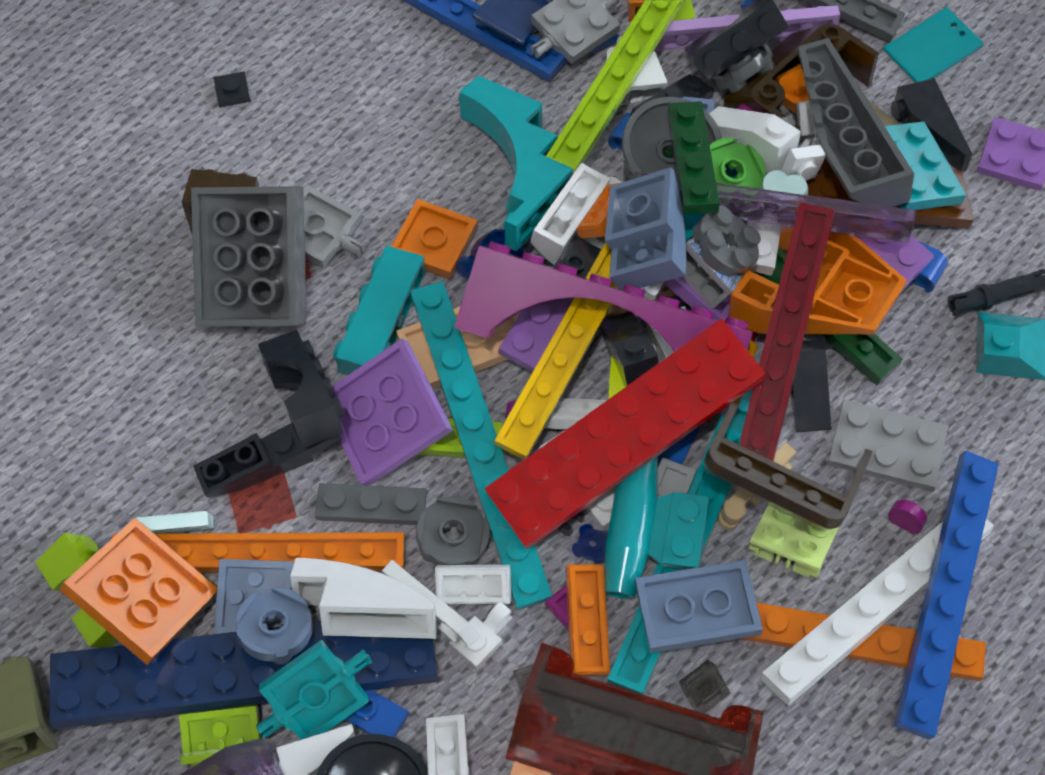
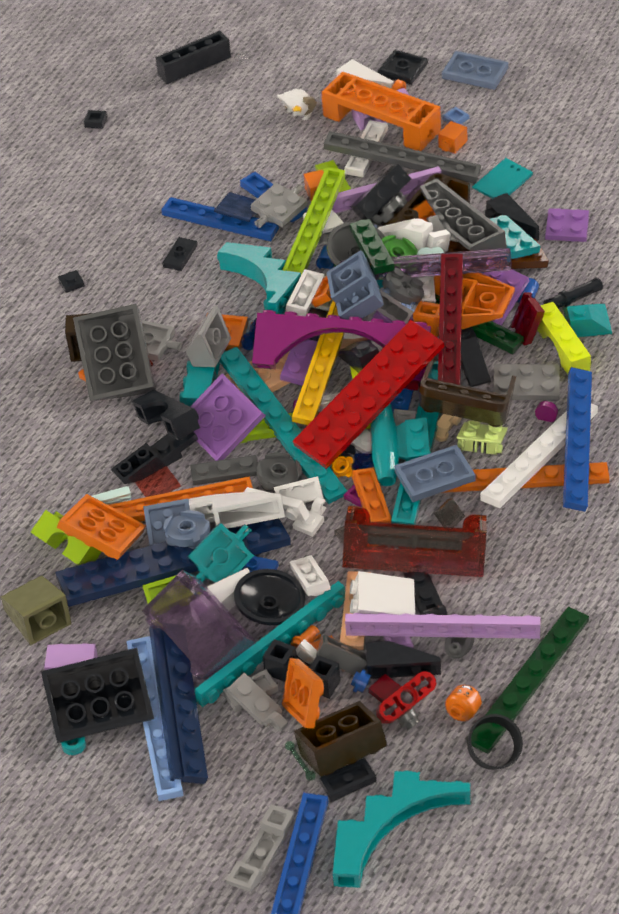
camera: 10 degrees left, 15 degrees down
(398, 267) = (209, 340): none -> light grey slope
(406, 75) = (180, 254): none -> black plate
(562, 555) = (340, 462): none -> light orange plate
(916, 330) = (527, 318): none -> dark red plate
(972, 404) = (568, 345): none -> neon yellow arch

